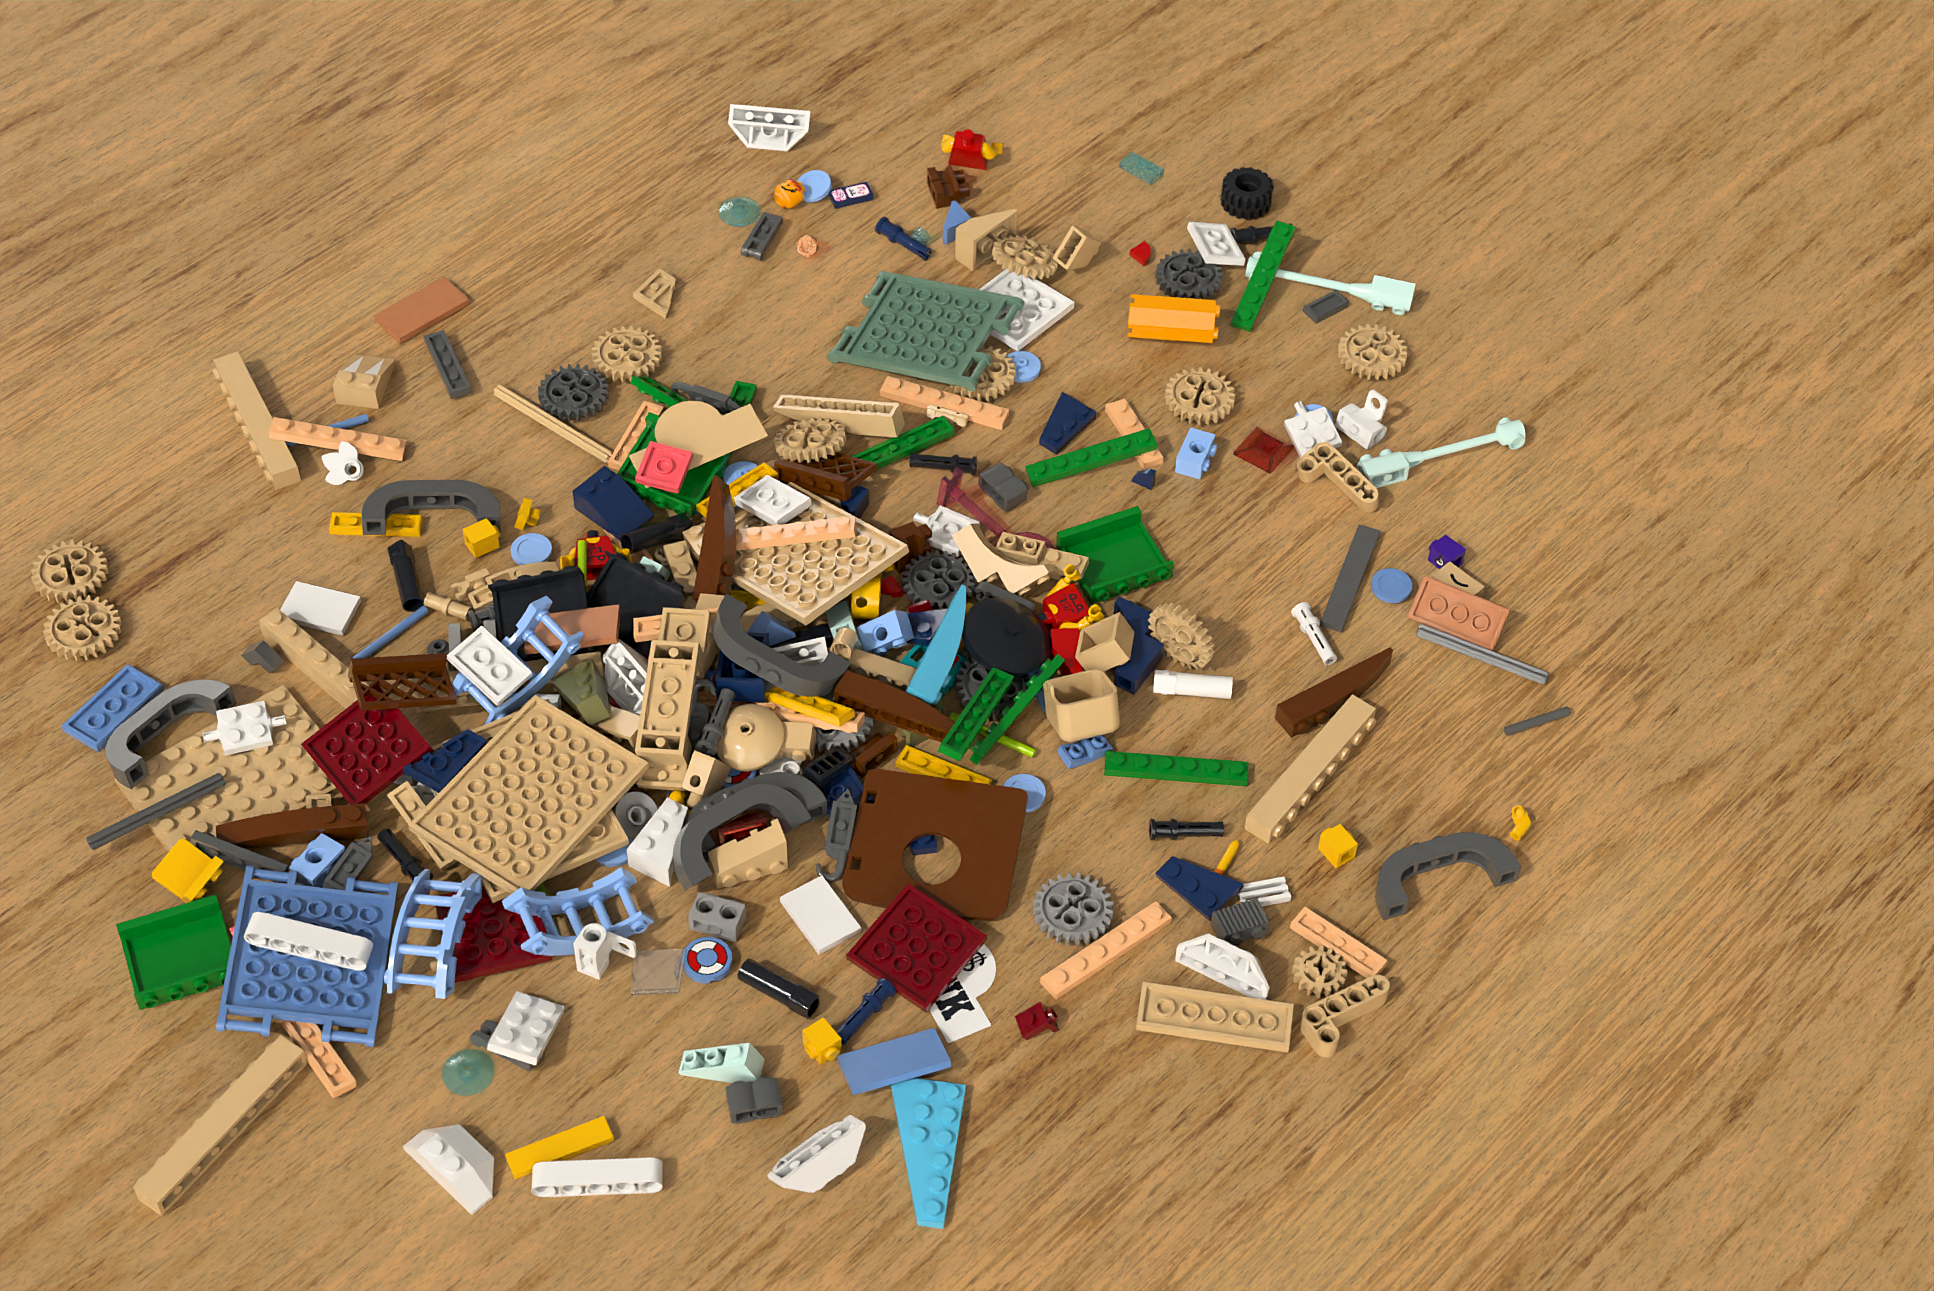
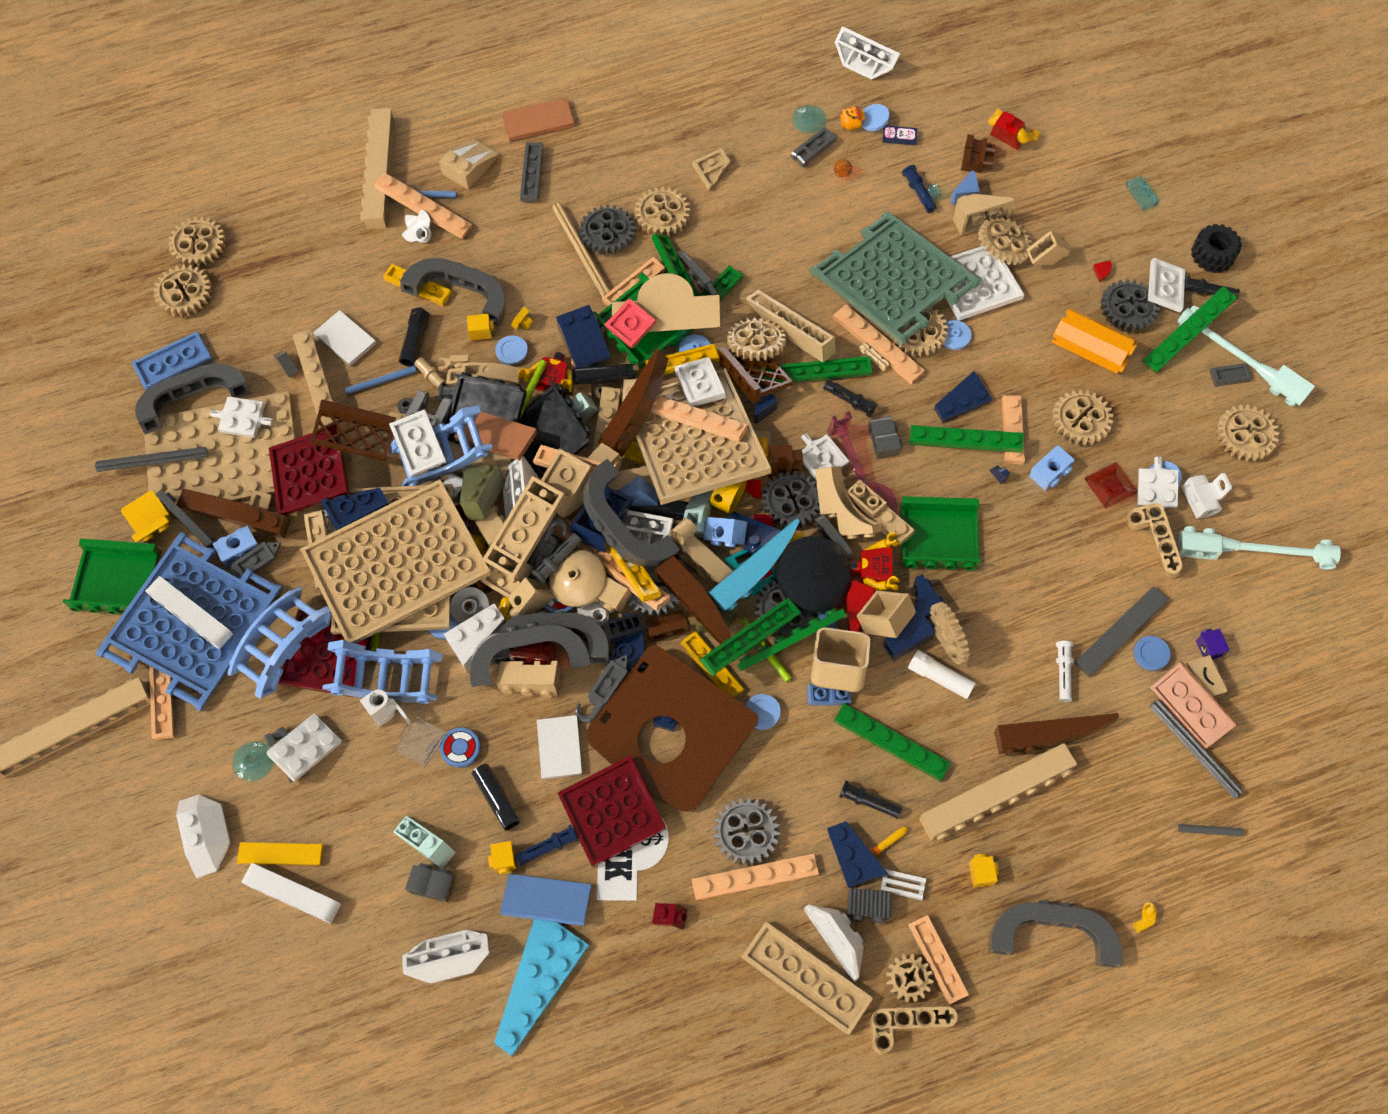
camera: 30 degrees right, 15 degrees up
(410, 864) = (297, 574): black pin -> none
(716, 922) = (480, 718): light grey brick -> none

